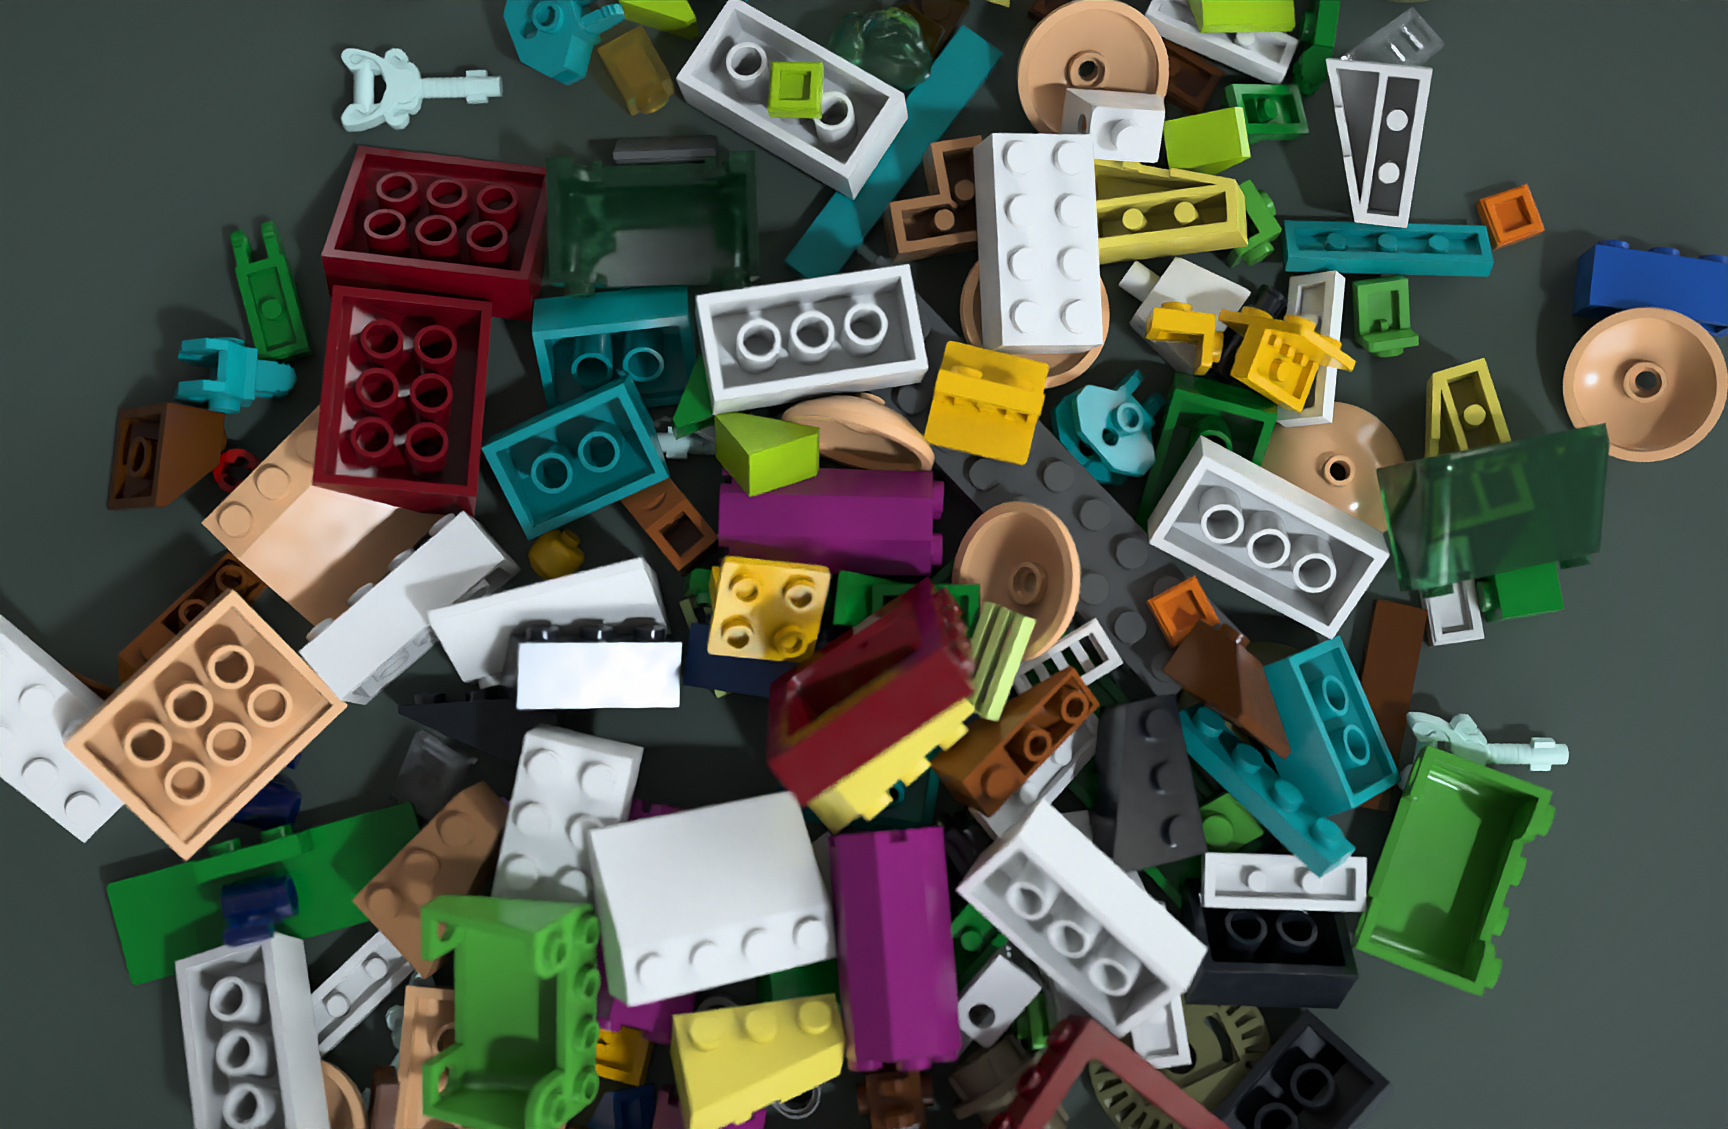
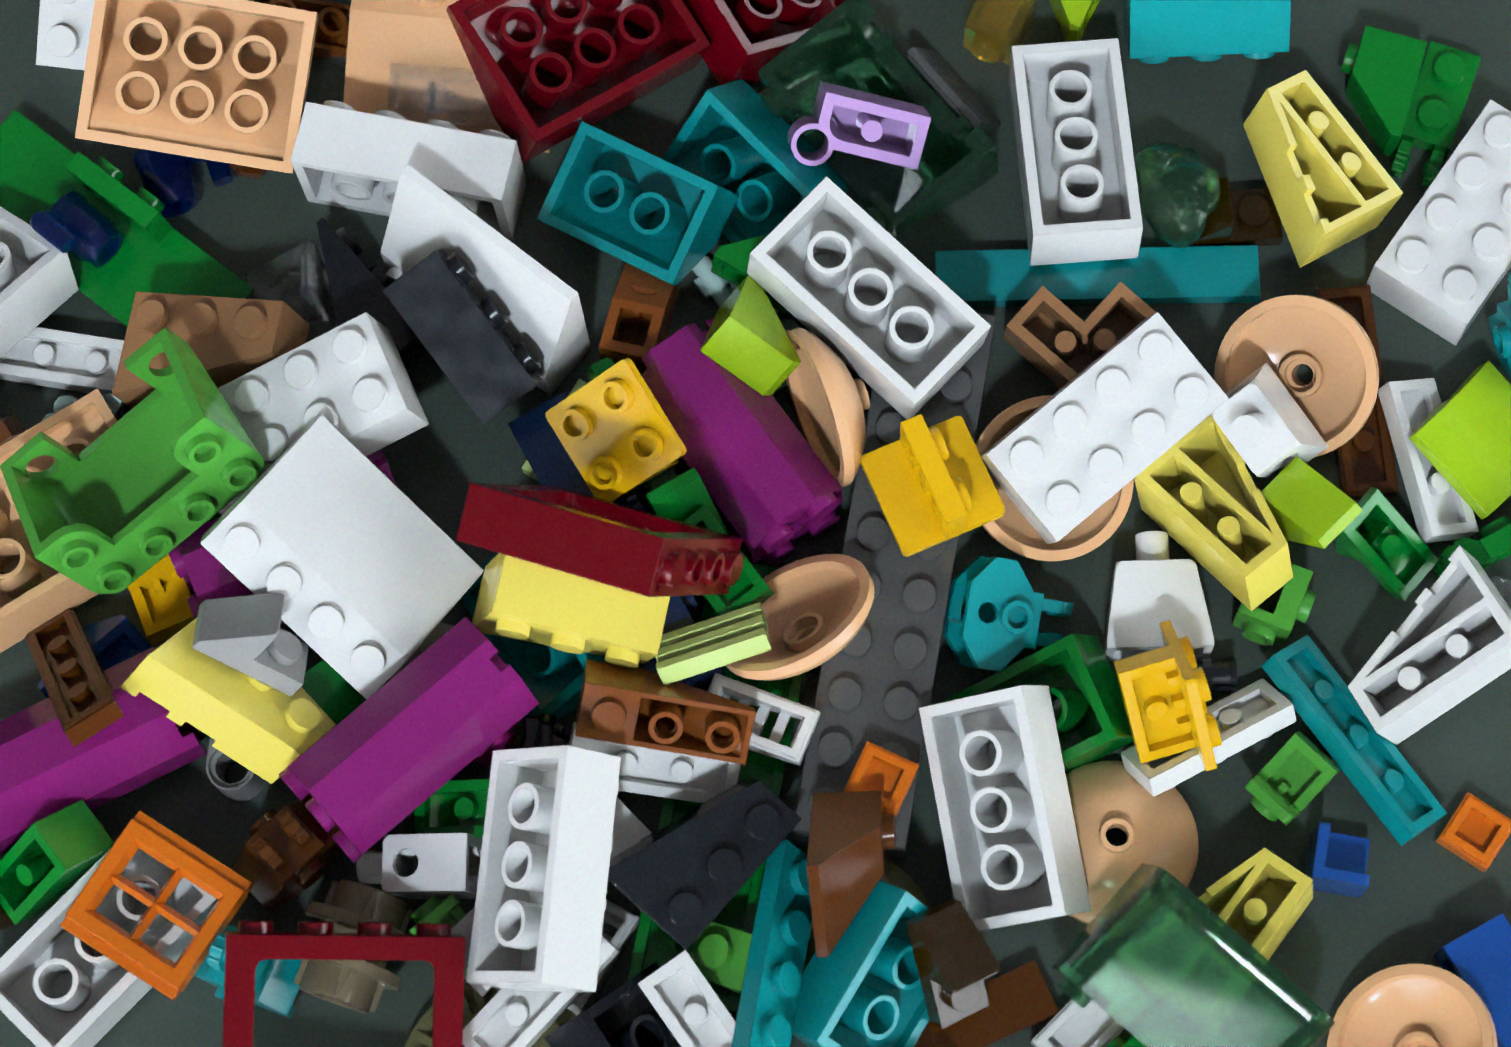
camera: 60 degrees right, 10 degrees down
(363, 543) = (437, 94): none -> clear slope
(556, 554) = (550, 250): yellow piece -> none
(655, 239) = (863, 127): none -> lavender hinge
(733, 1018) = (249, 638): none -> light grey slope
(796, 90) = (1075, 141): lime tile -> none
(1179, 324) = (1131, 598): yellow bracket -> none
(1353, 661) = (951, 962): none -> dark brown slope
(1464, 331) = (1337, 862): none -> blue panel

